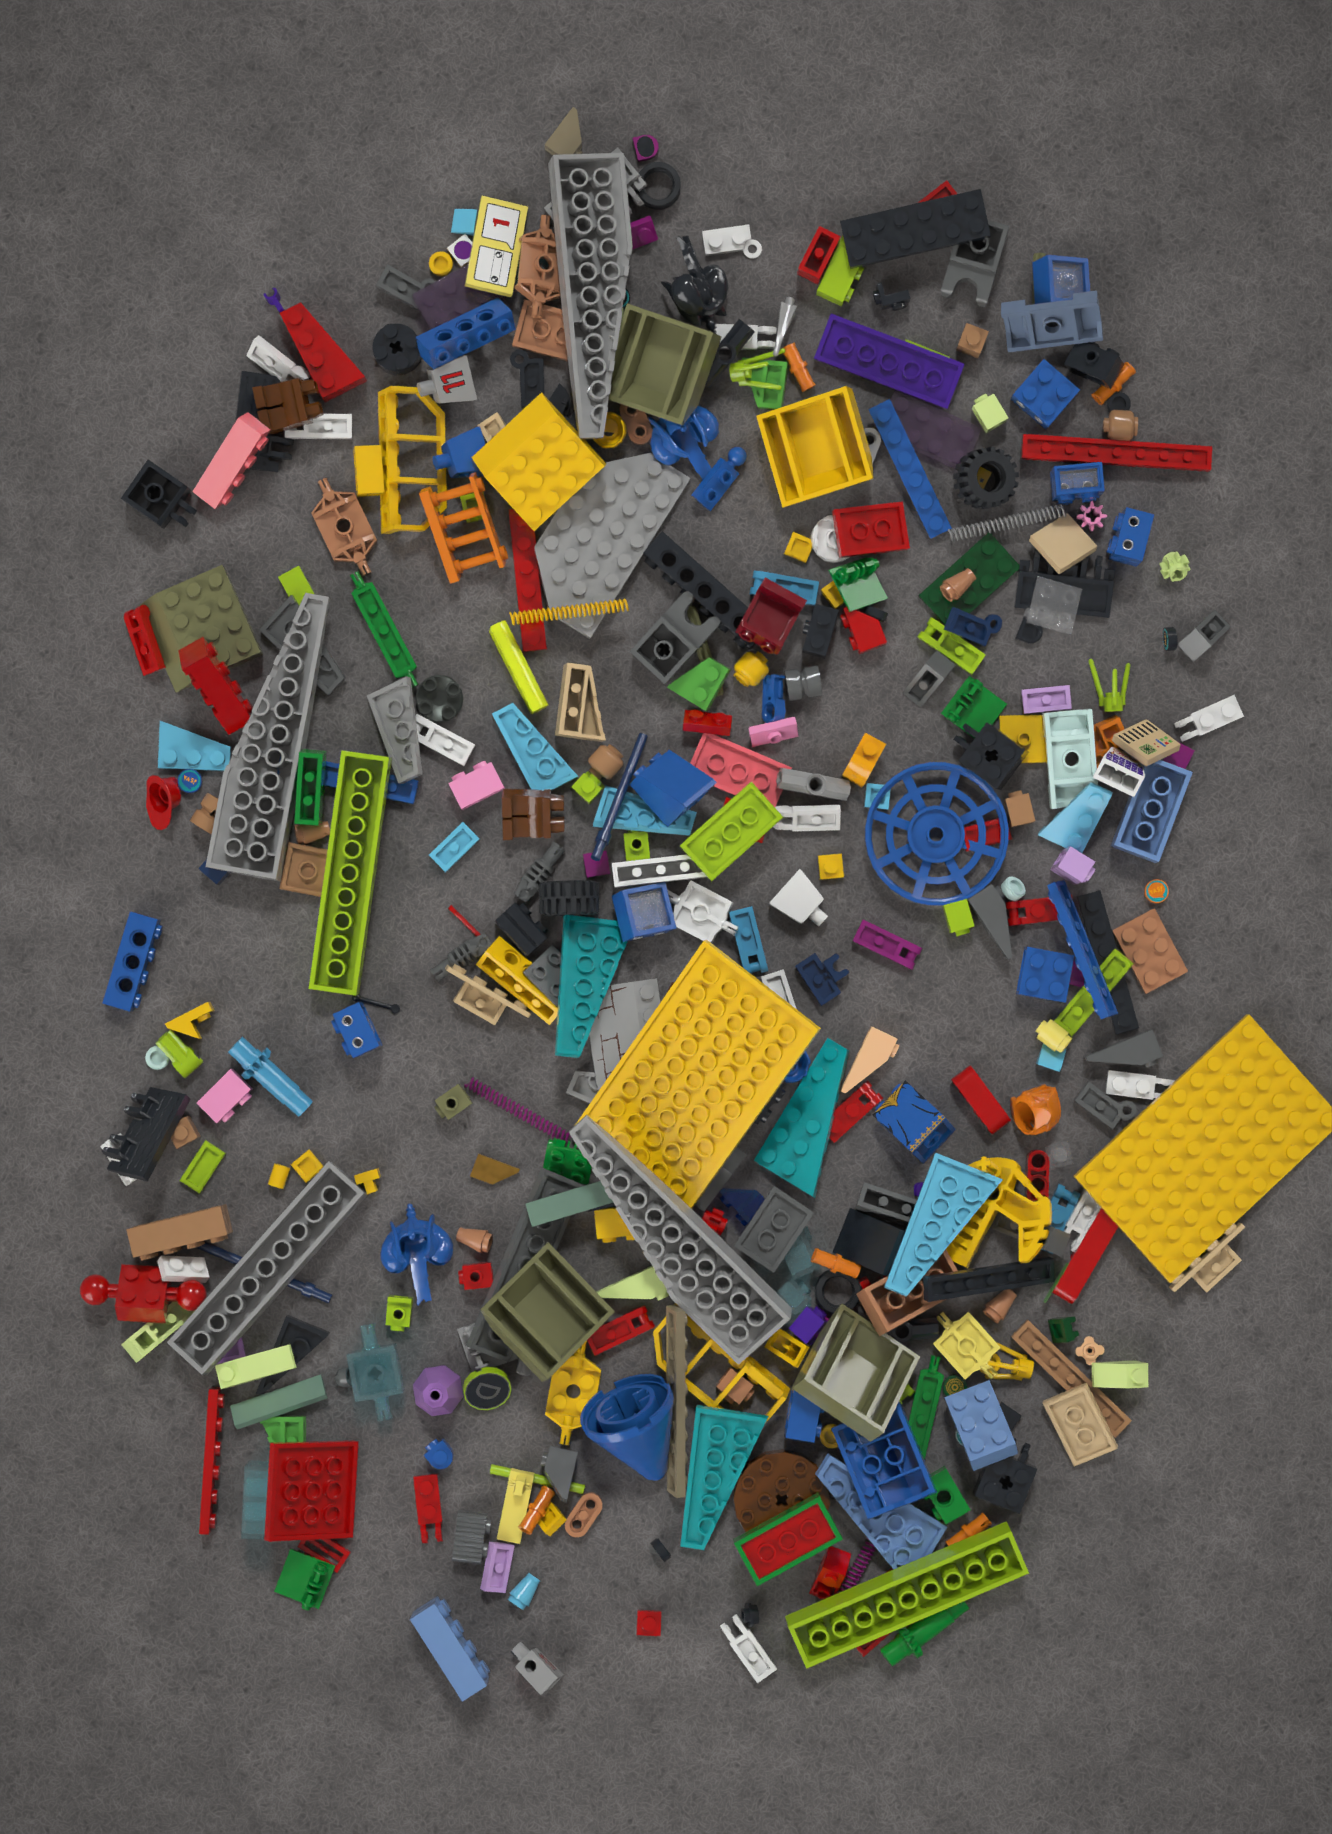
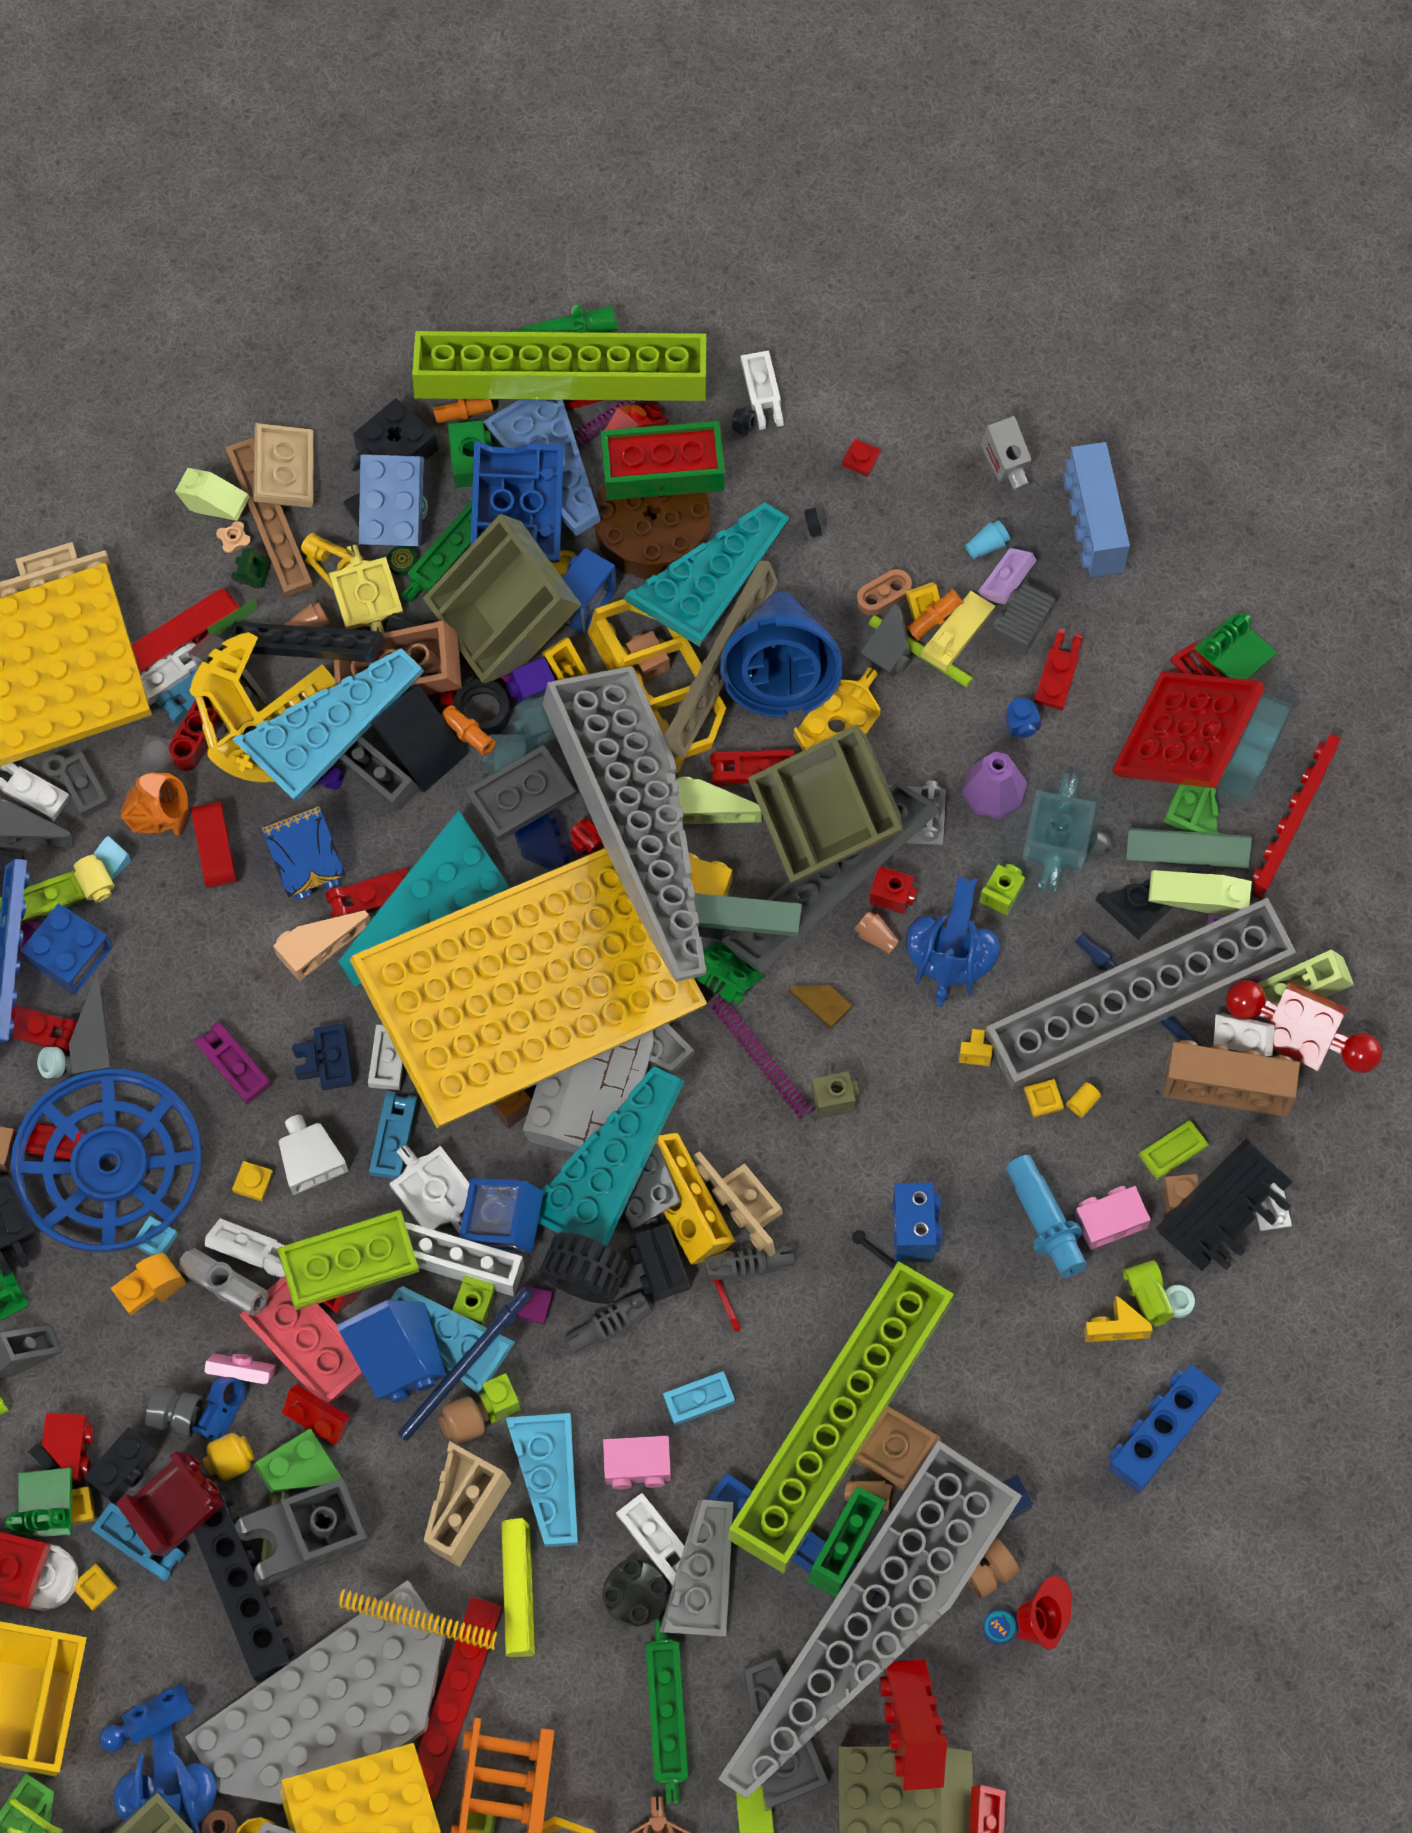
camera: 155 degrees left, 20 degrees down
(190, 751) = (984, 1665): medium azure wing -> none
(487, 1388) = (935, 762): black tile -> none
(530, 813) = (584, 1394): reddish brown hips -> none
(958, 917) = (132, 1053): lime brick -> none

